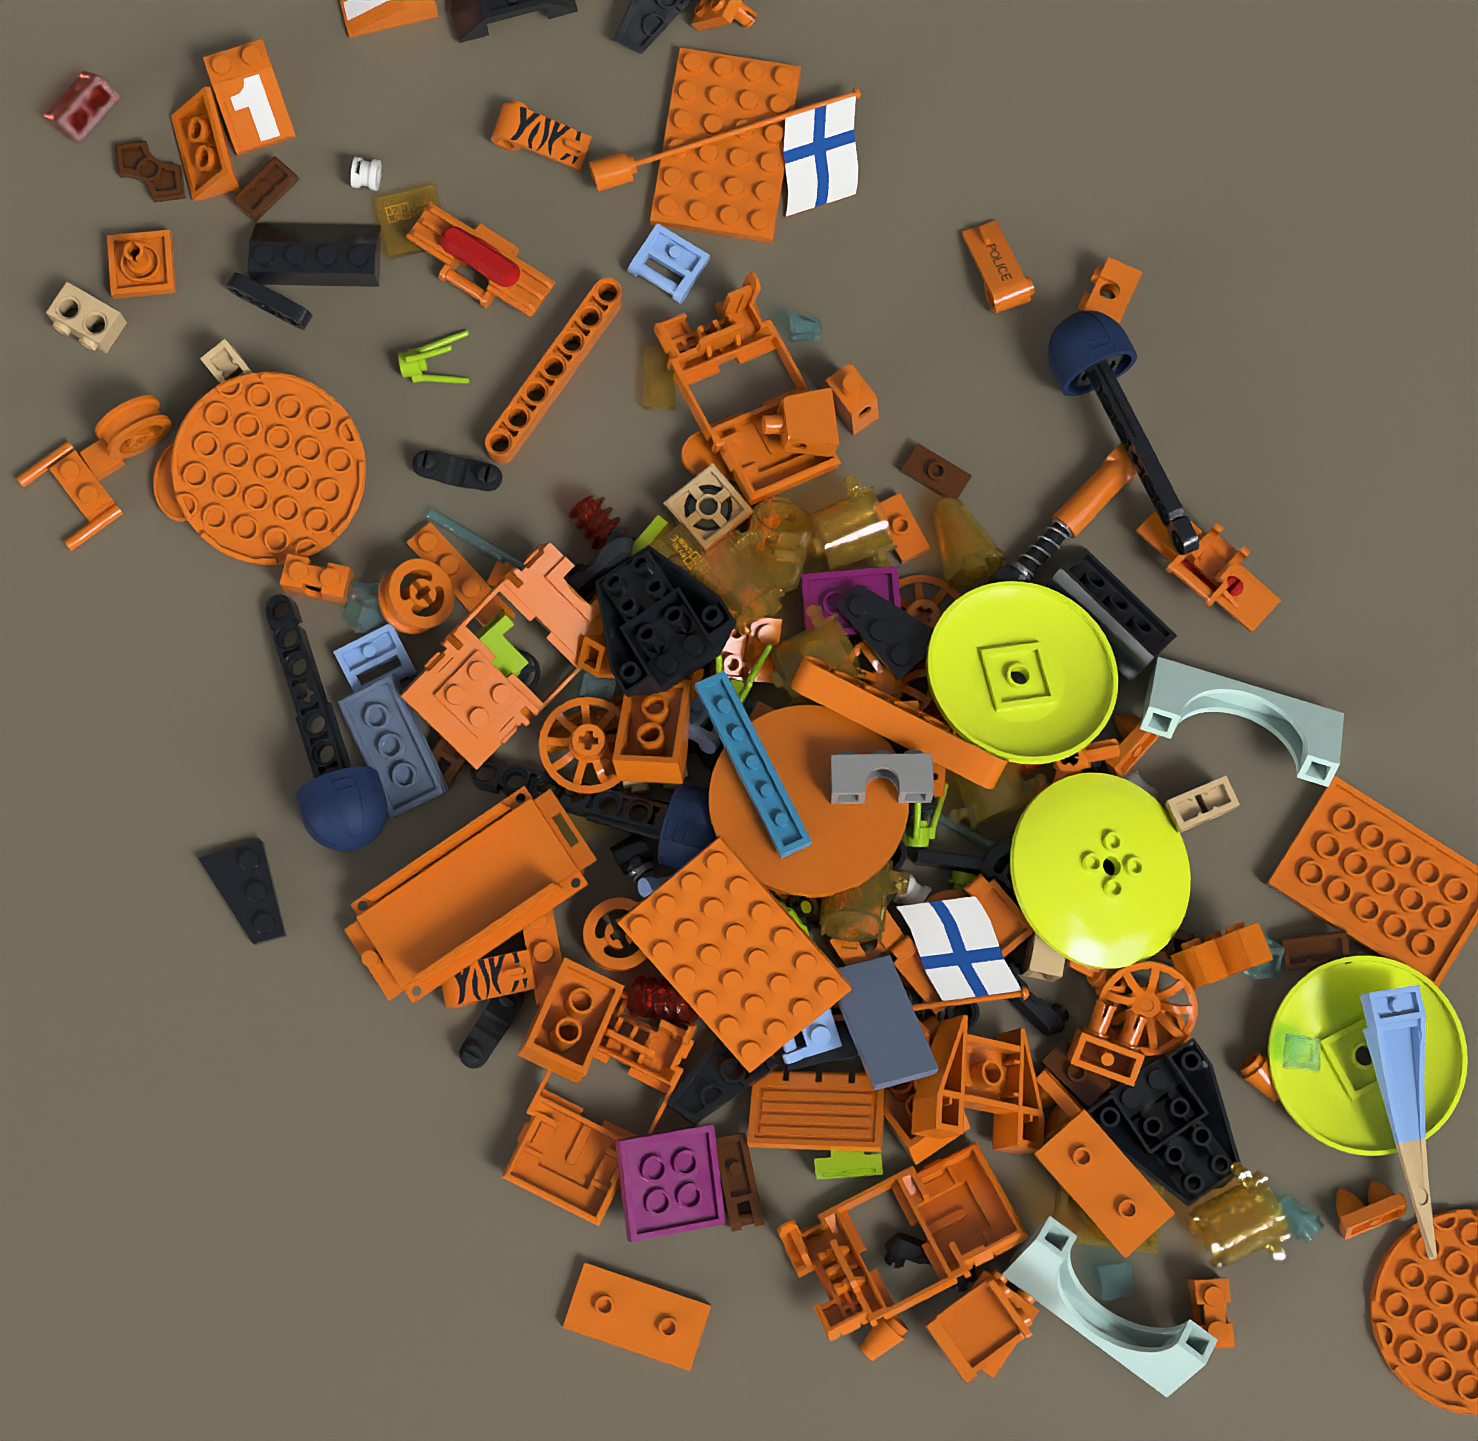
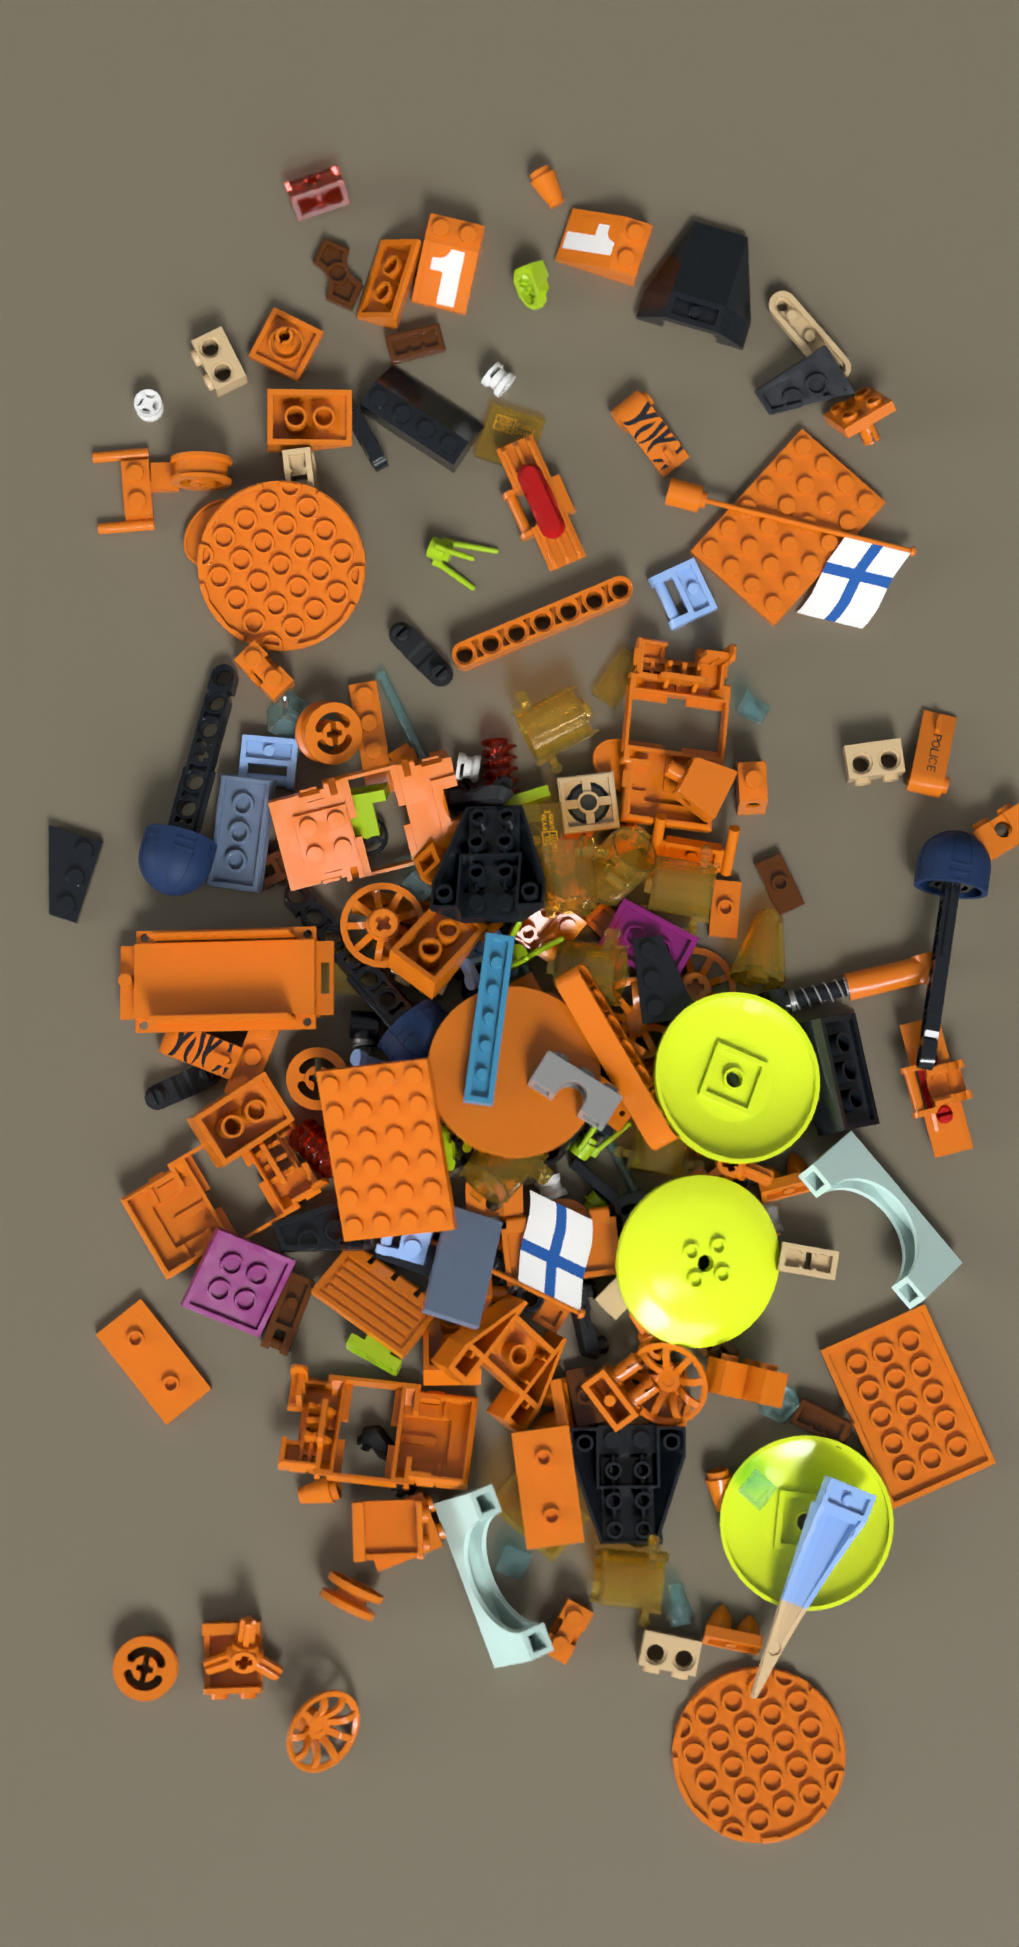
camera: 35 degrees right, 5 degrees up
(38, 394) = (146, 399): none -> white wheel
(206, 315) = (308, 419): none -> orange slope
(341, 67) = (532, 284): none -> lime rock
(574, 544) = (471, 767): none -> white wheel
(626, 455) = (553, 724): none -> clear yellow container
(792, 611) = (600, 919): none -> orange tile
(833, 489) = (690, 849): none -> orange plate
(941, 300) = (871, 754): none -> tan brick
(983, 1419) = (351, 1595): none -> orange wheel
(993, 1017) = (550, 1316): none -> orange tile
(1320, 1260) = (671, 1645): none -> tan brick

